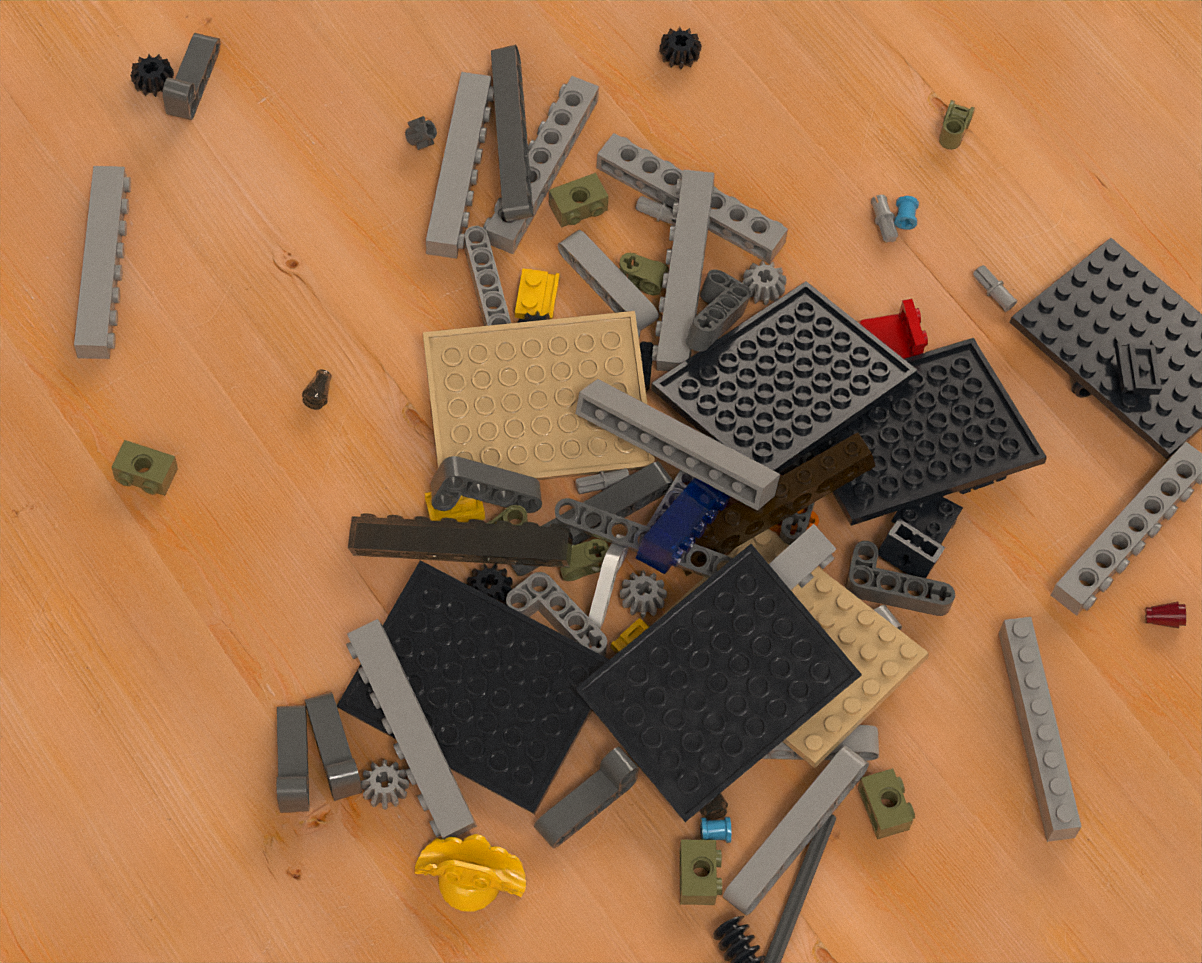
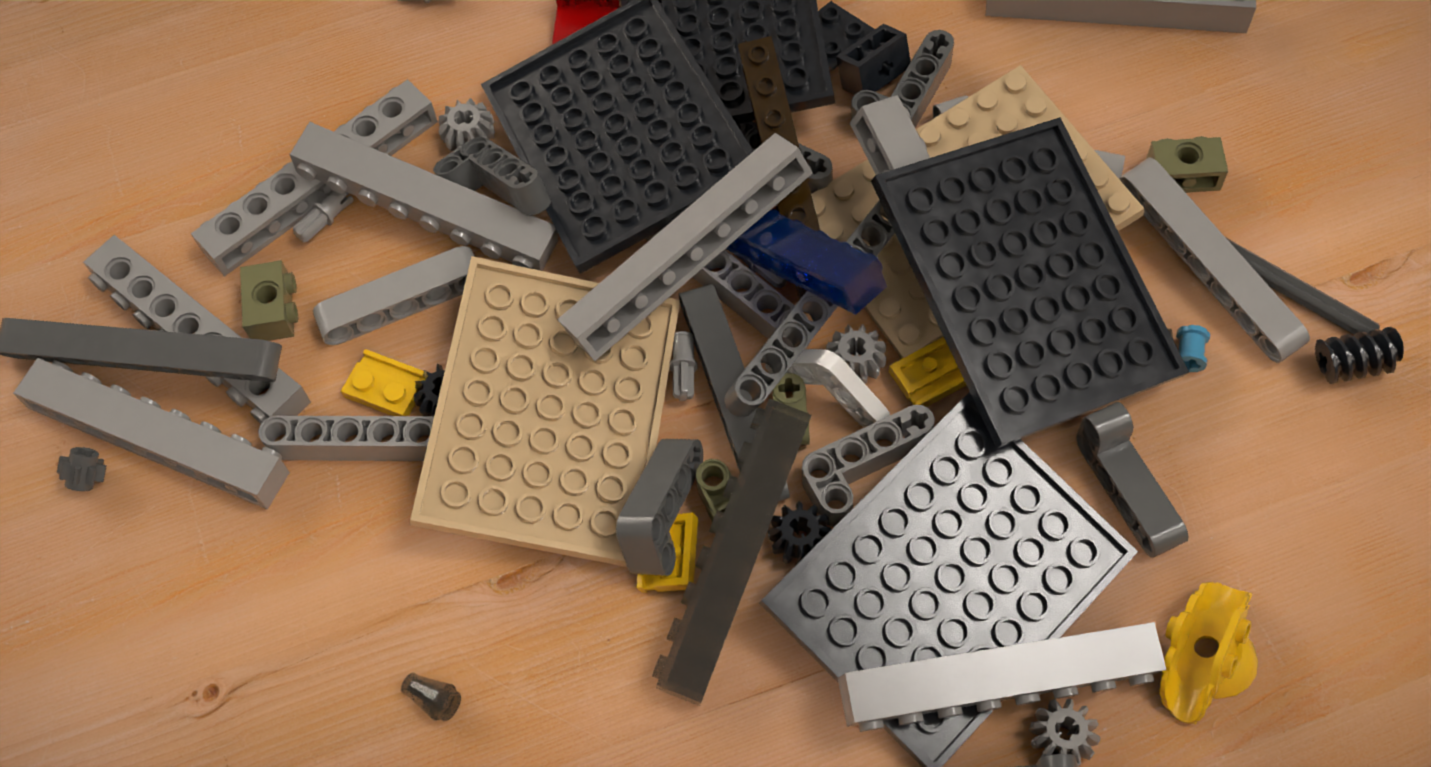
camera: 65 degrees left, 0 degrees up
(644, 273) = (404, 248): olive piece -> none
(680, 48) = (97, 138): black gear -> none
(696, 889) = (1227, 386): olive brick -> none

